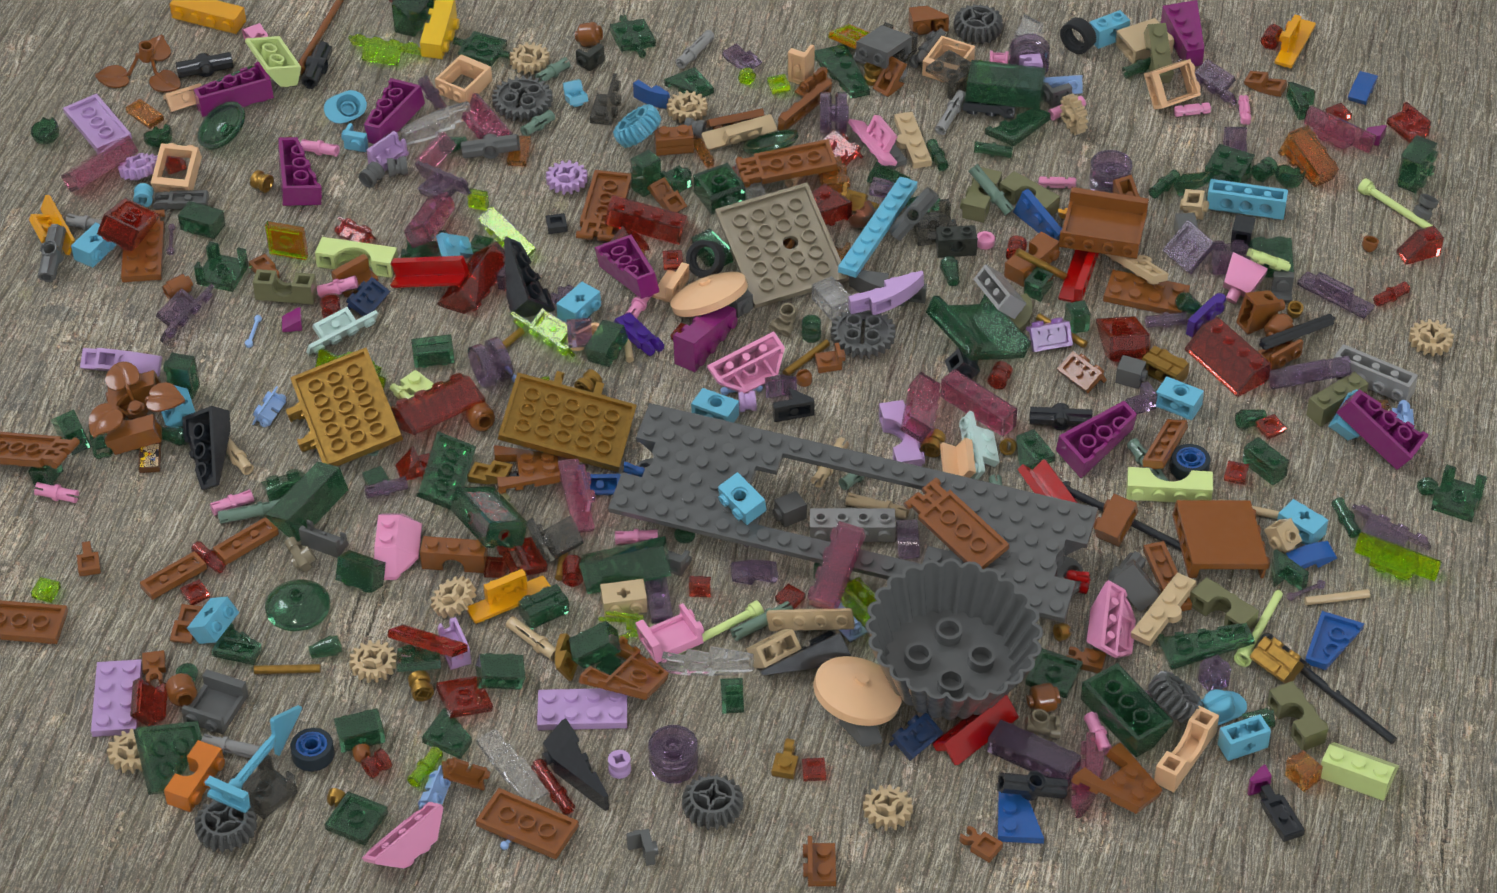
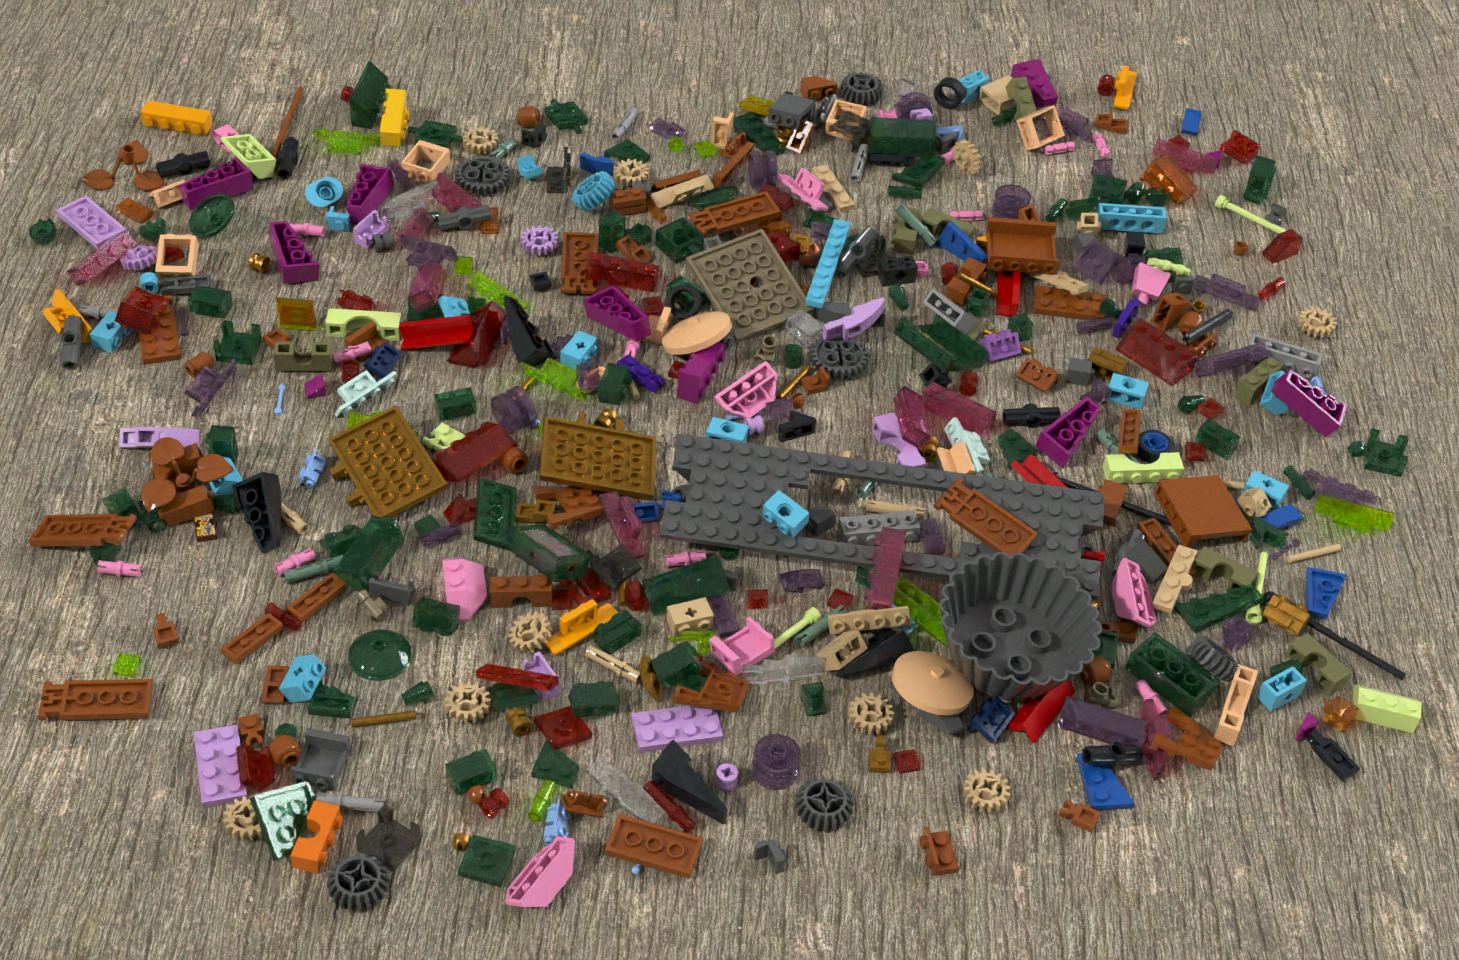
camera: 15 degrees left, 0 degrees up
(195, 592) = (276, 653): clear red tile -> none
(231, 792) = (361, 851): medium azure piece -> none
(312, 749) = (428, 806): black wheel -> none
(371, 174) = (360, 250): dark grey wheel -> none
(537, 123) = (501, 195): sand green pin -> none
(787, 716) = (870, 713): none -> tan gear
(937, 154) = (858, 199): clear green pin -> none
(1003, 446) = (989, 446): pearl gold hinge -> none
(1123, 337) = (1064, 343): clear red slope -> none
(1225, 704) = (1252, 658): medium azure piece -> none
(1300, 98) = (1144, 133): clear green slope -> none

